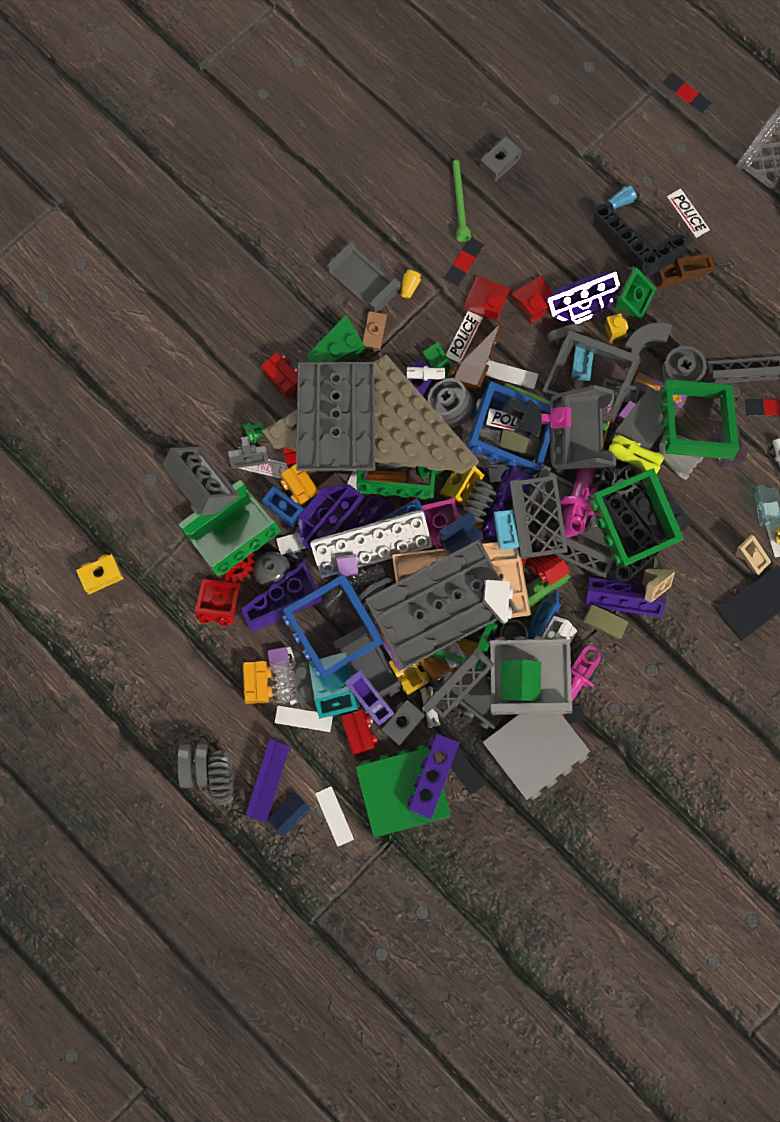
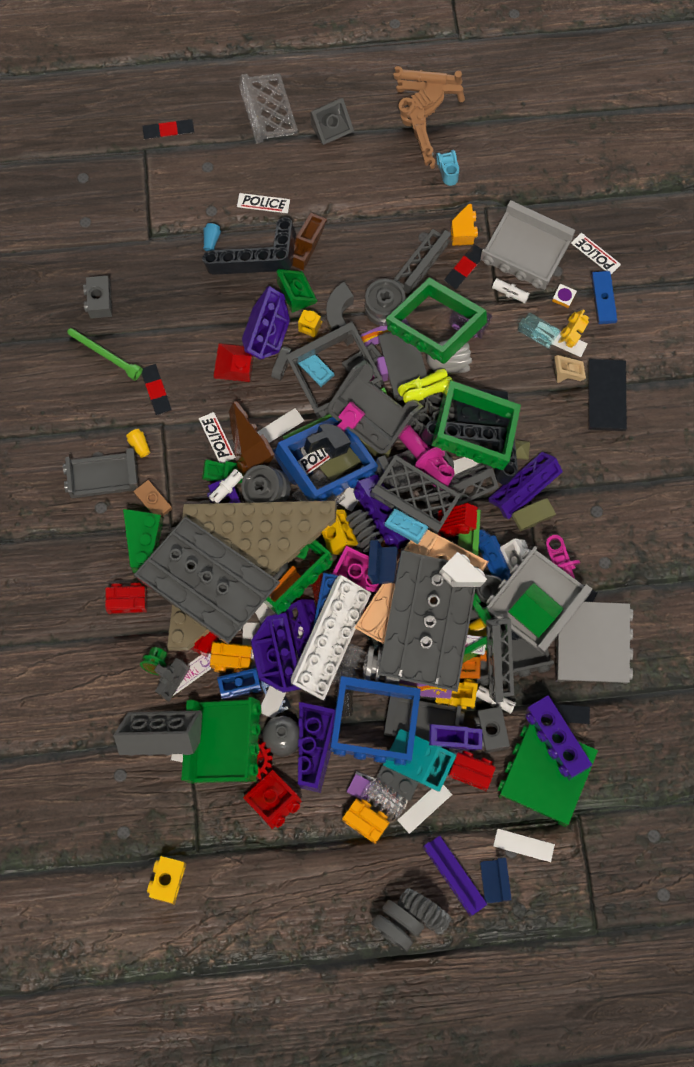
camera: 55 degrees left, 5 degrees down
(347, 565) = (333, 669): medium lavender tile -> none
(487, 298) = (202, 396): red slope -> none
(657, 582) = (534, 452): tan slope -> none

